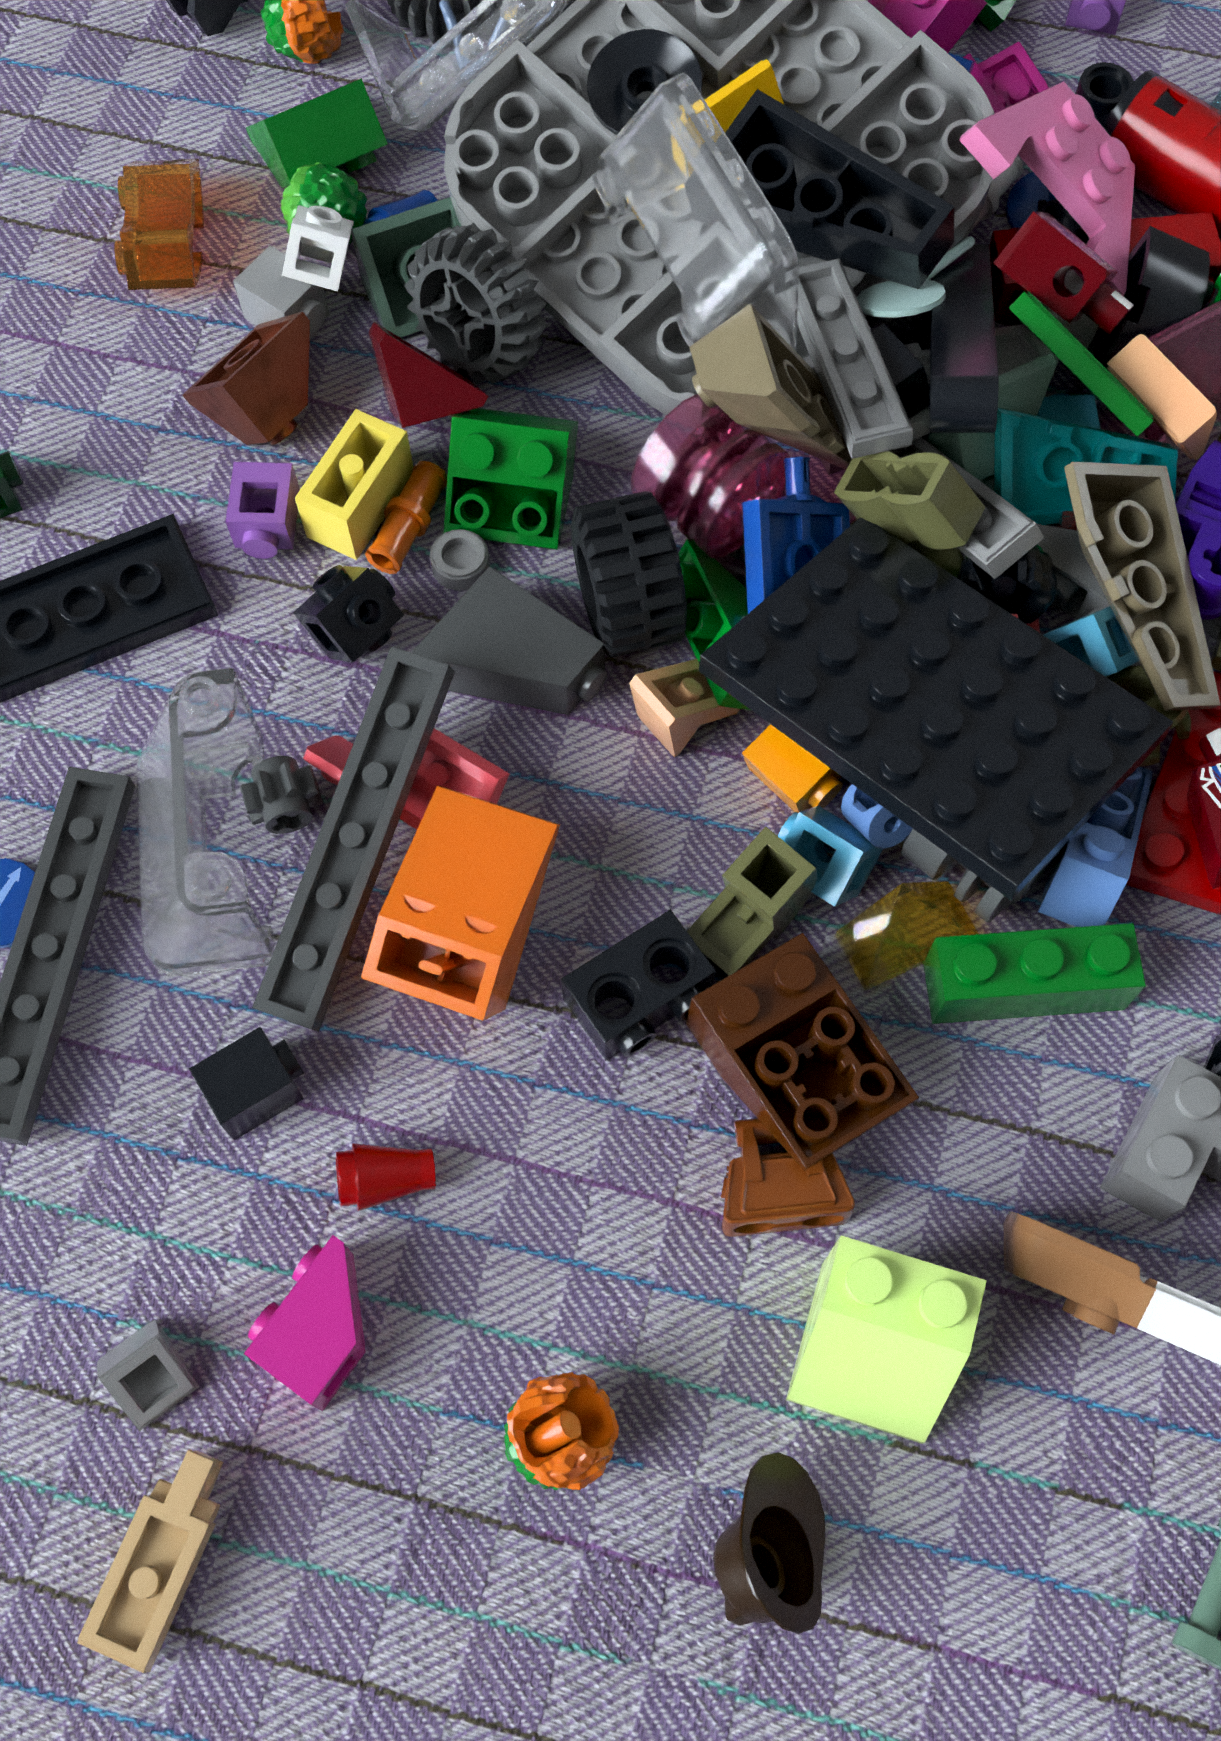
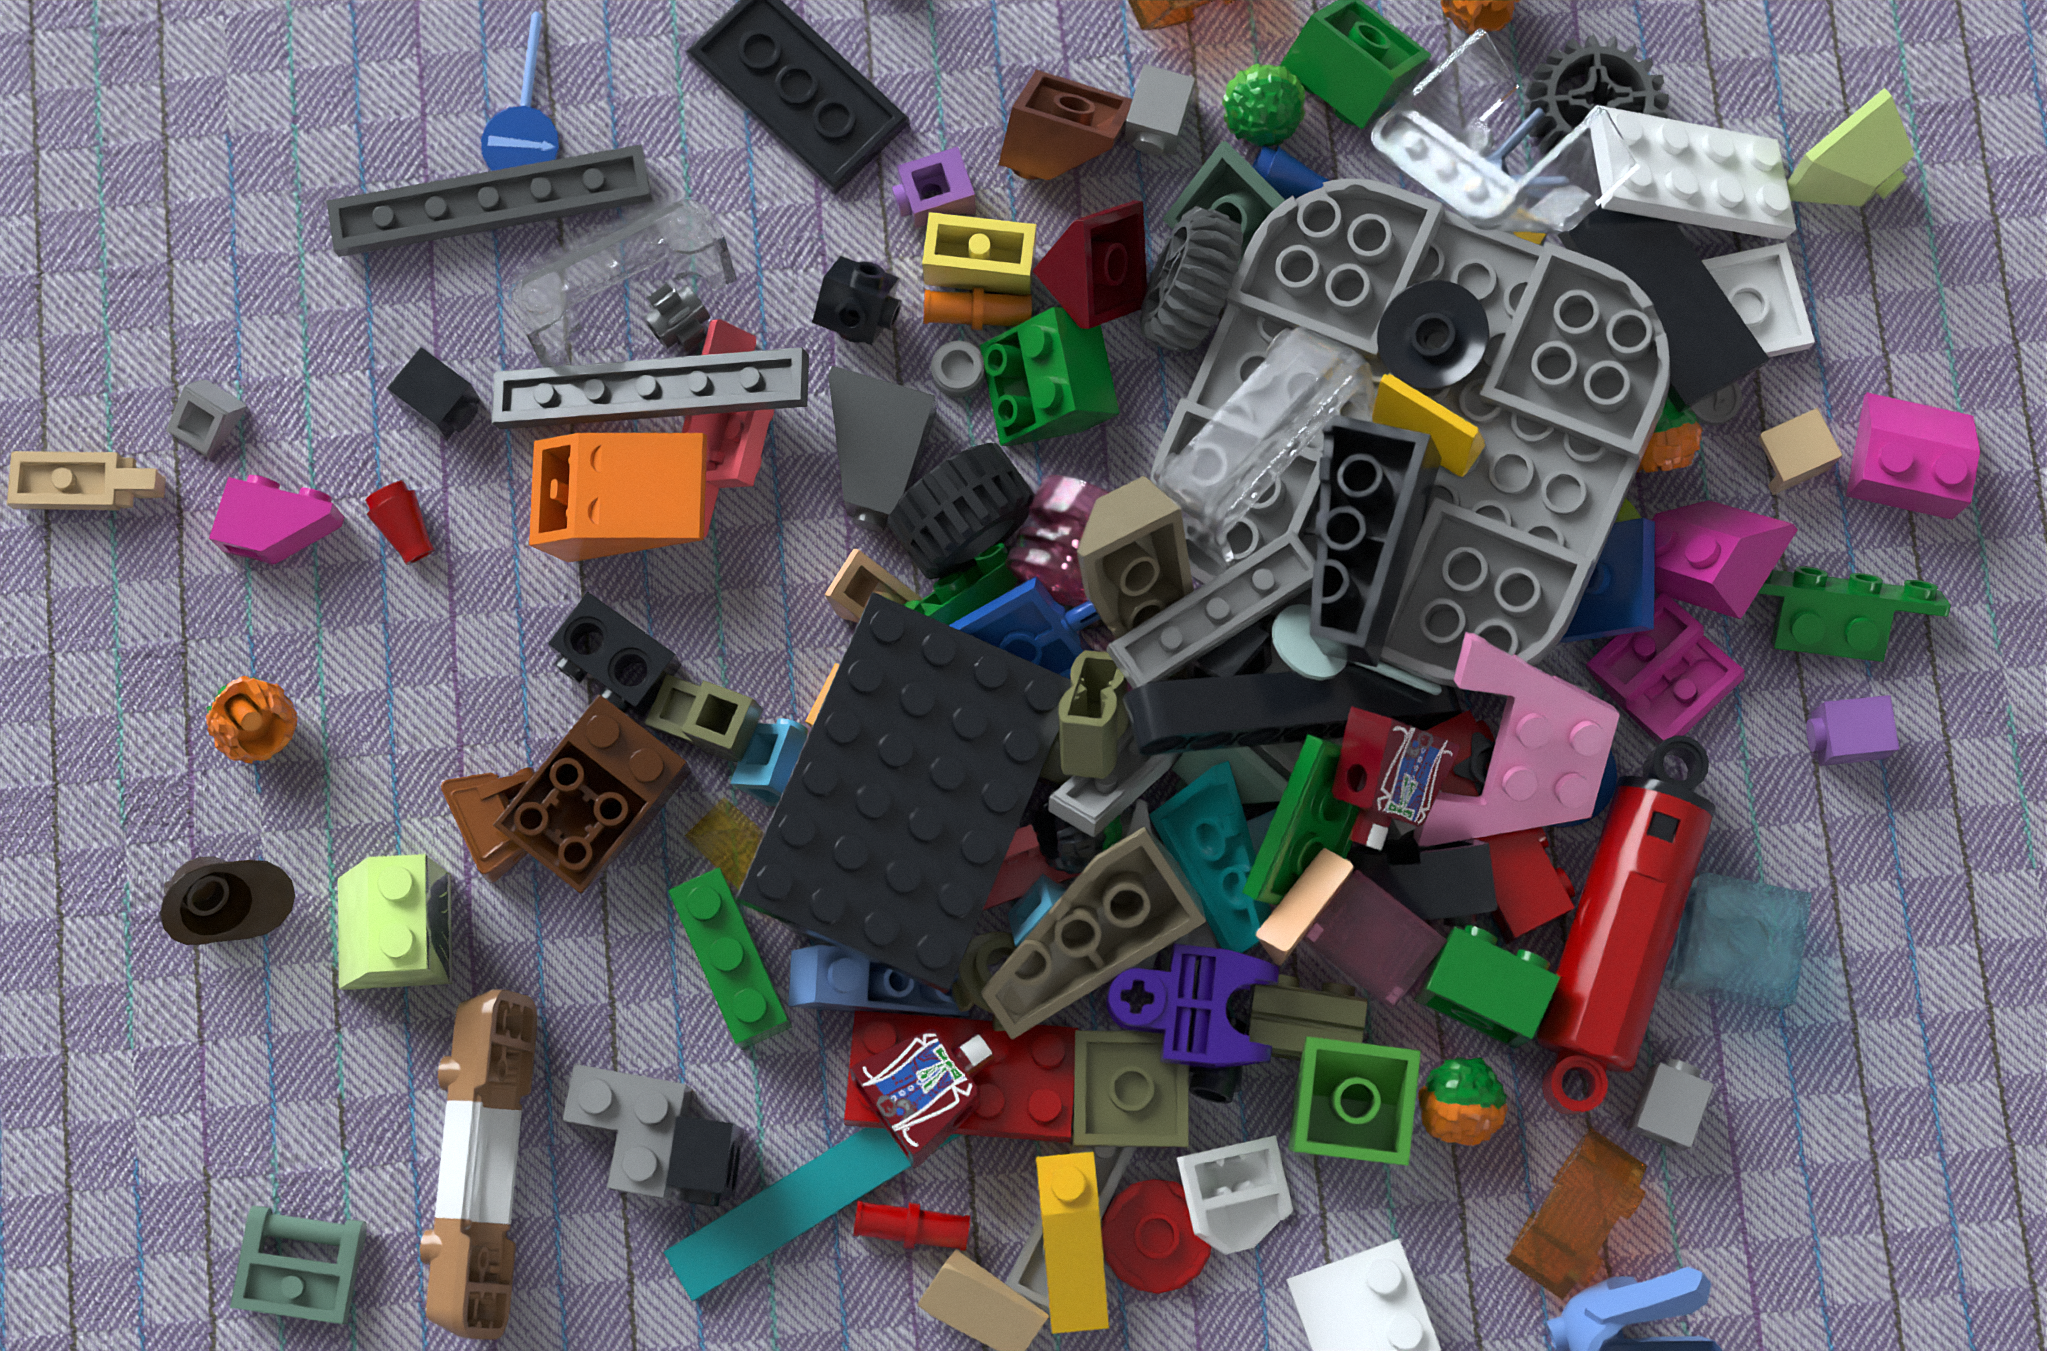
camera: 70 degrees right, 10 degrees up
(318, 235) = (1198, 120): white brick -> none

